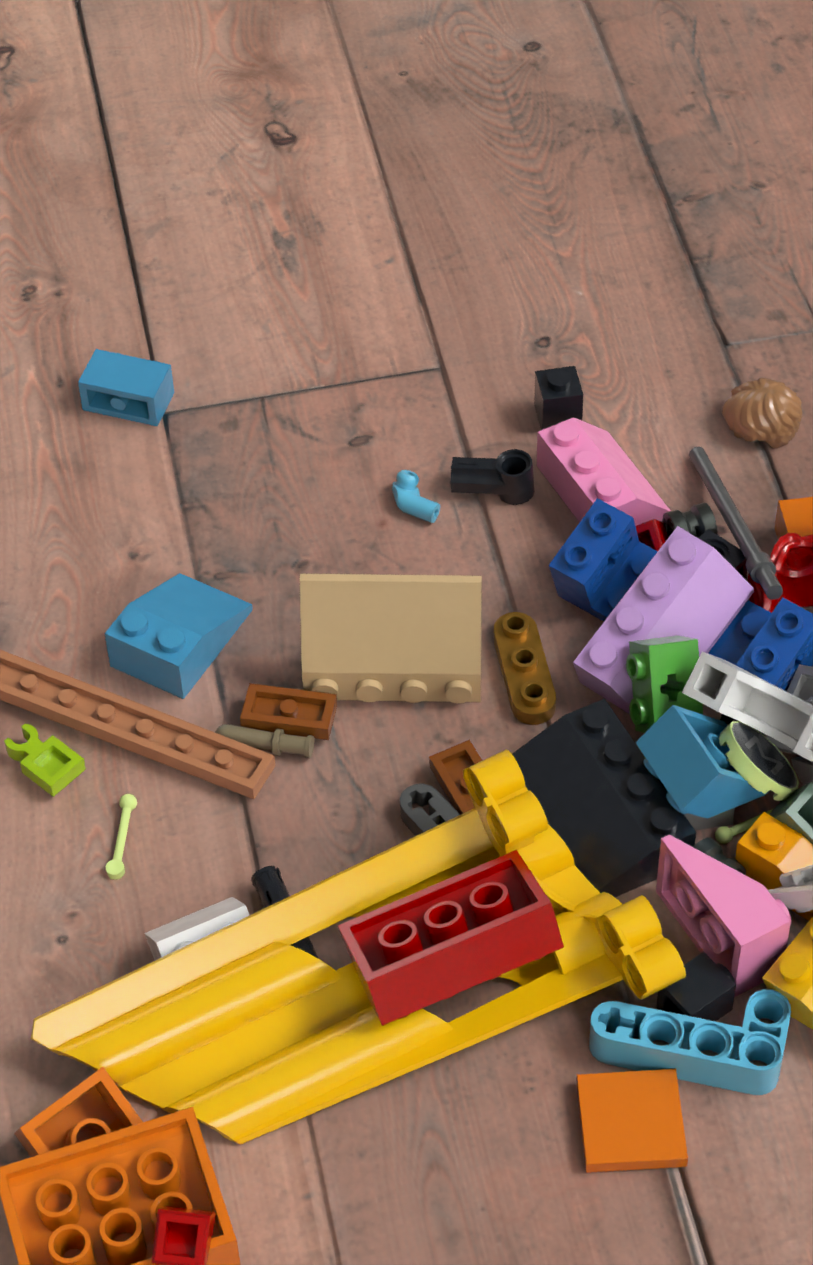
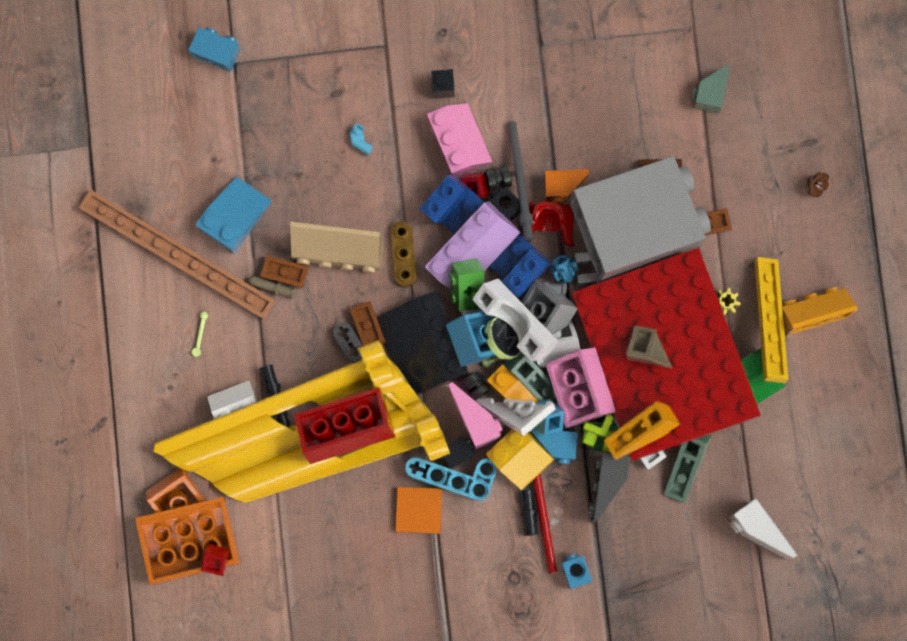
camera: 10 degrees right, 30 degrees up
(46, 763) = (166, 290): lime plate -> none
(507, 475) = (399, 132): black piece -> none
(763, 412) = (550, 102): medium nougat hair -> none

